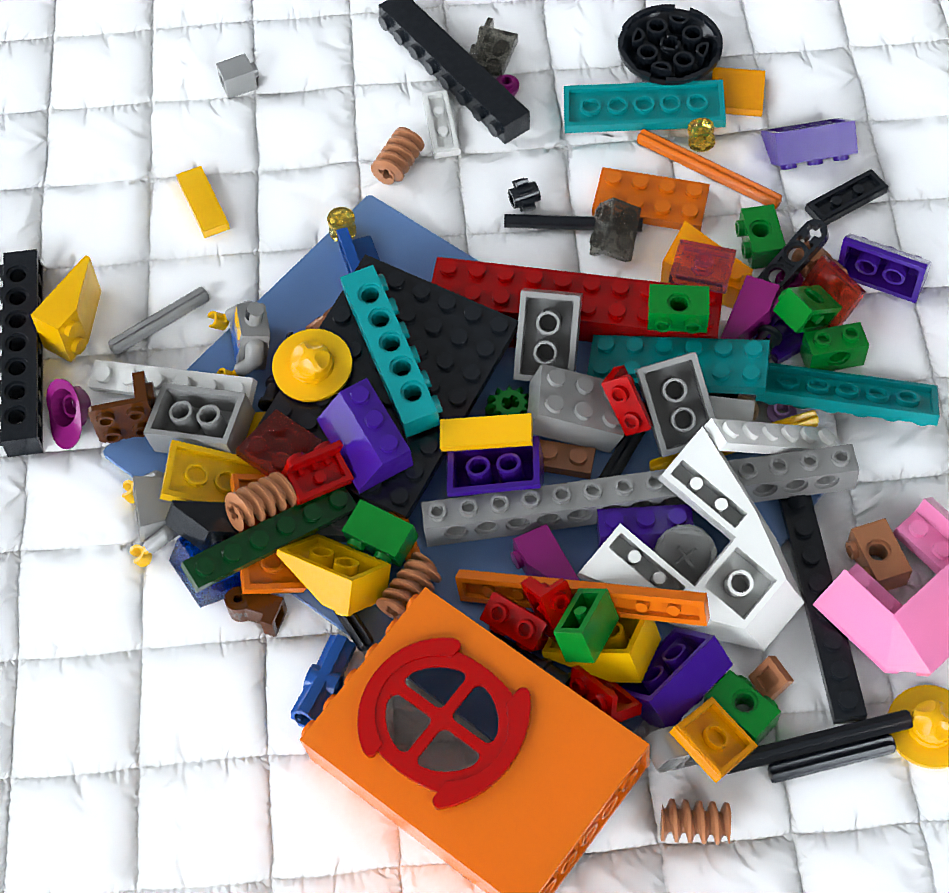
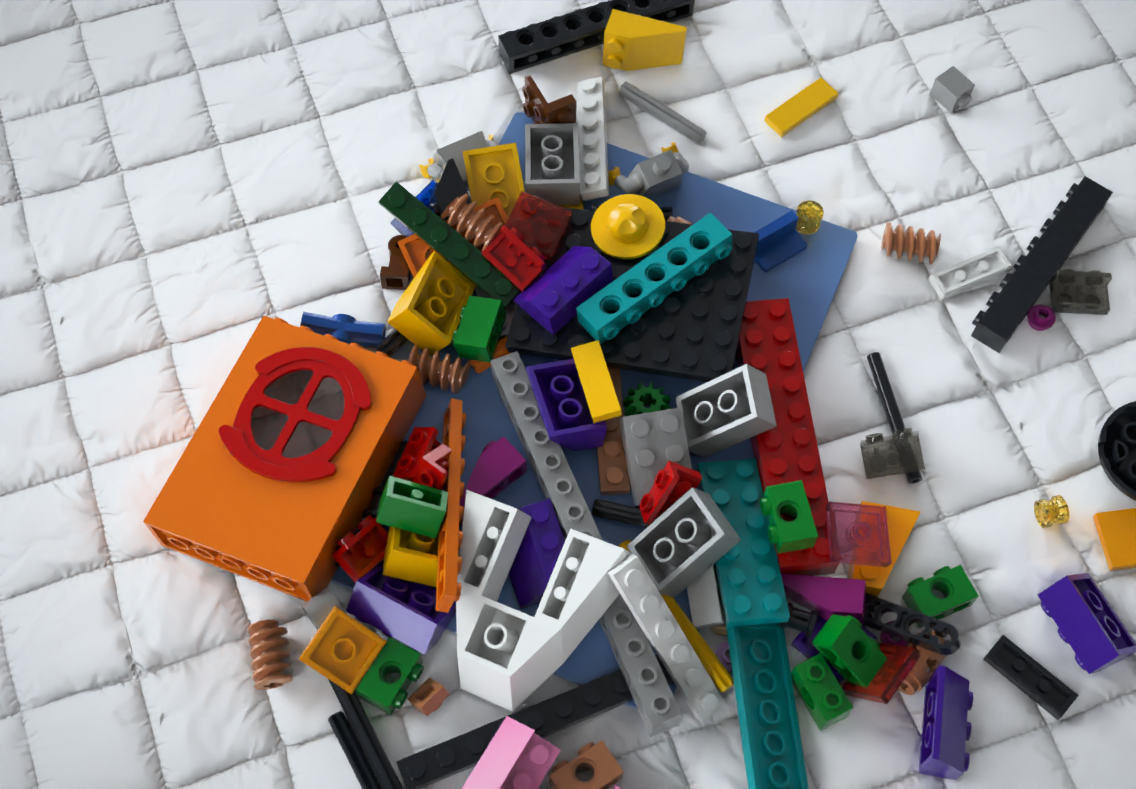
camera: 70 degrees right, 5 degrees up
(67, 412) = (551, 75): magenta piece -> none
(524, 194) = (906, 362): black gear -> none
(642, 106) = (1066, 449): teal plate -> none
(662, 199) = (952, 484): orange plate -> none
(687, 550) = (525, 585): light grey tile -> none
(709, 168) = (1012, 531): orange axle -> none

